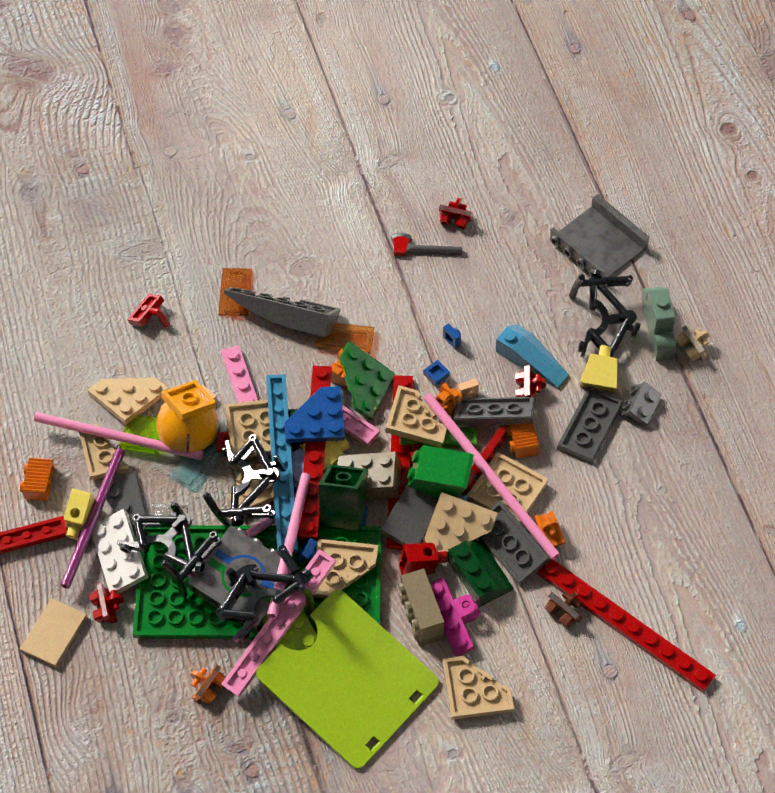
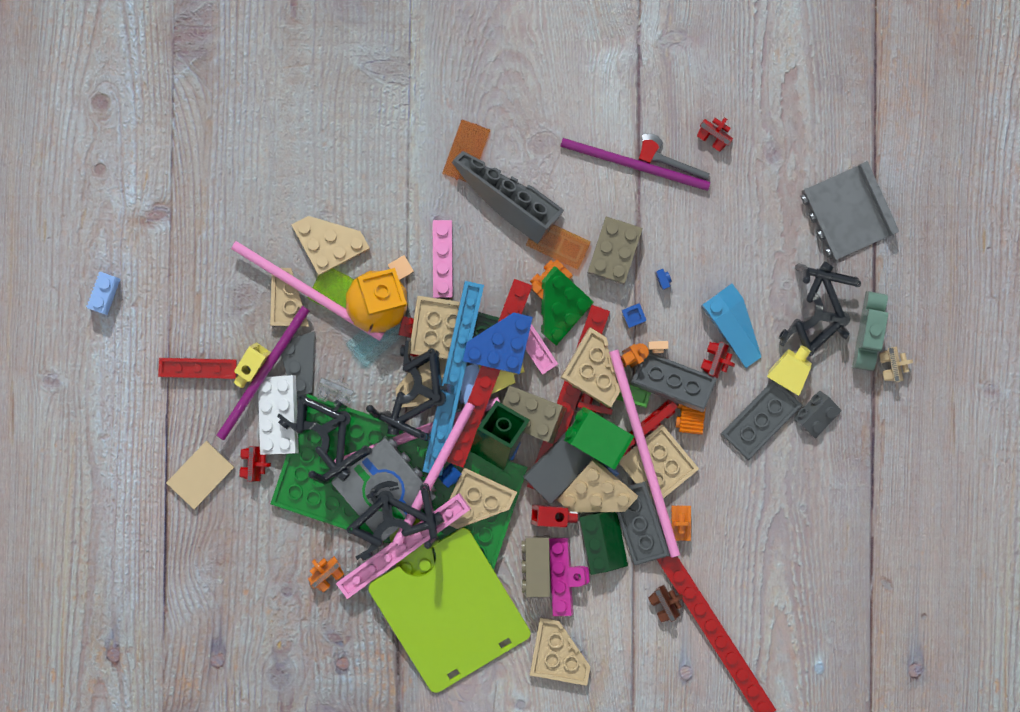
camera: 15 degrees right, 30 degrees up
(37, 479) = (221, 310): orange brick -> none
(147, 308) = (371, 150): red plate -> none
(393, 258) = (635, 164): none -> magenta piece
(398, 325) = (615, 250): none -> dark tan brick

